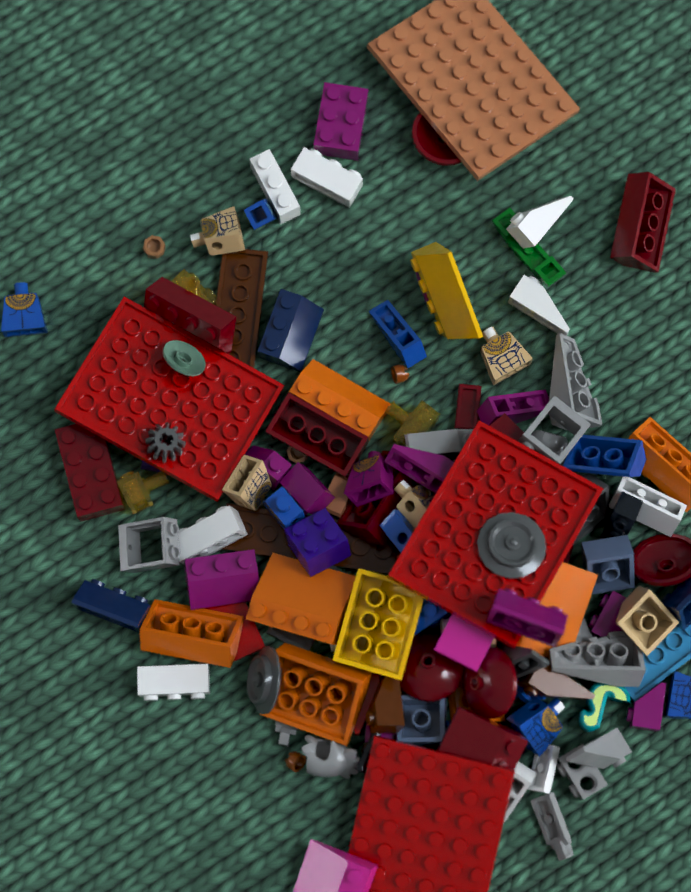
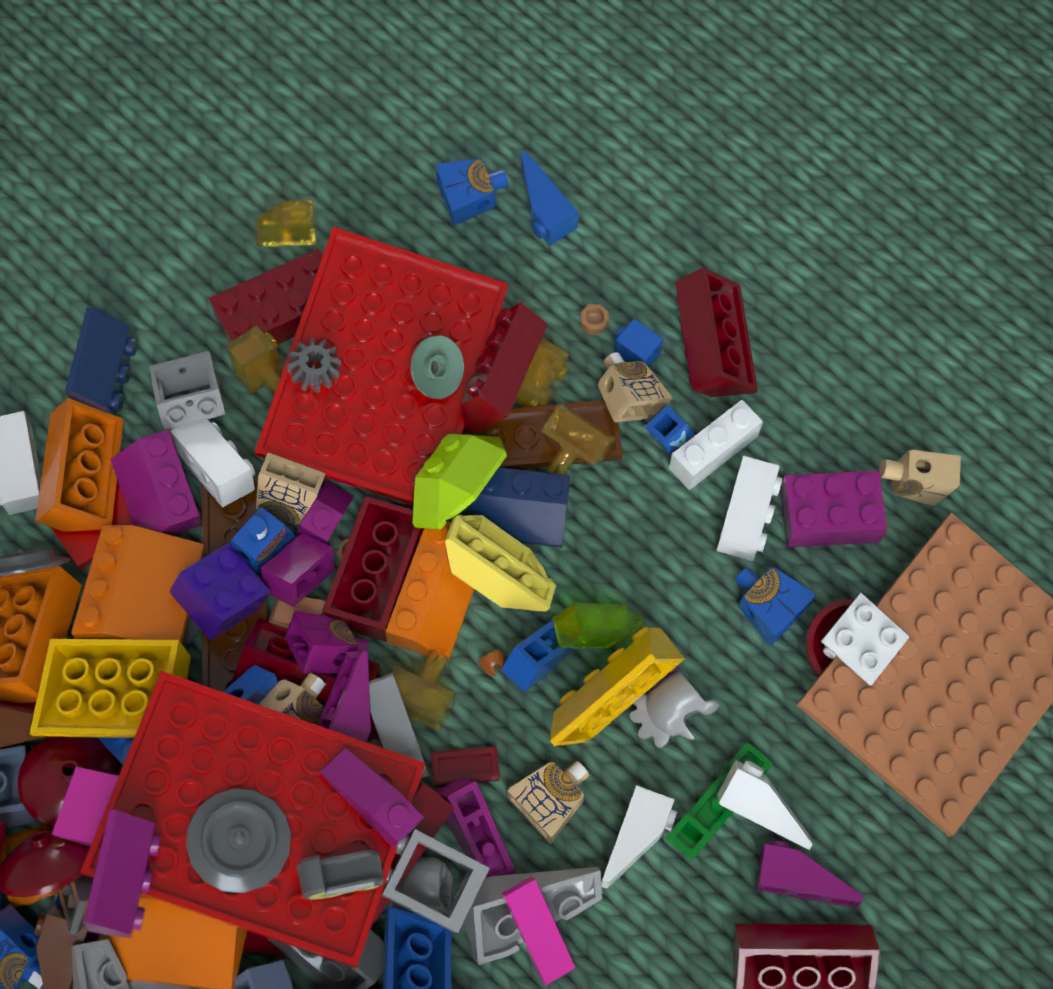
camera: 75 degrees right, 10 degrees down
(21, 453) = (287, 224): none -> clear yellow slope
(52, 259) = (549, 209): none -> blue slope
(183, 221) = (637, 343): none -> blue brick
(188, 166) = (715, 335): none -> dark red slope
(254, 277) = (577, 439): none -> clear yellow brick
(270, 361) = (454, 477): none -> lime wedge
(334, 60) = (922, 475): none -> tan torso
(336, 350) = (497, 564): none -> light yellow wedge
(393, 297) = (595, 625): none -> clear neon green hinge
(398, 178) = (772, 601): none -> blue torso
(446, 123) = (864, 639): none -> white hinge
(465, 261) = (667, 707): none -> light grey piece
(500, 455) = (372, 797): none -> magenta slope
(547, 483) = (339, 874): none -> dark grey animal
(584, 213) = (796, 875): none -> magenta slope
(591, 379) = (538, 930): none -> dark pink tile

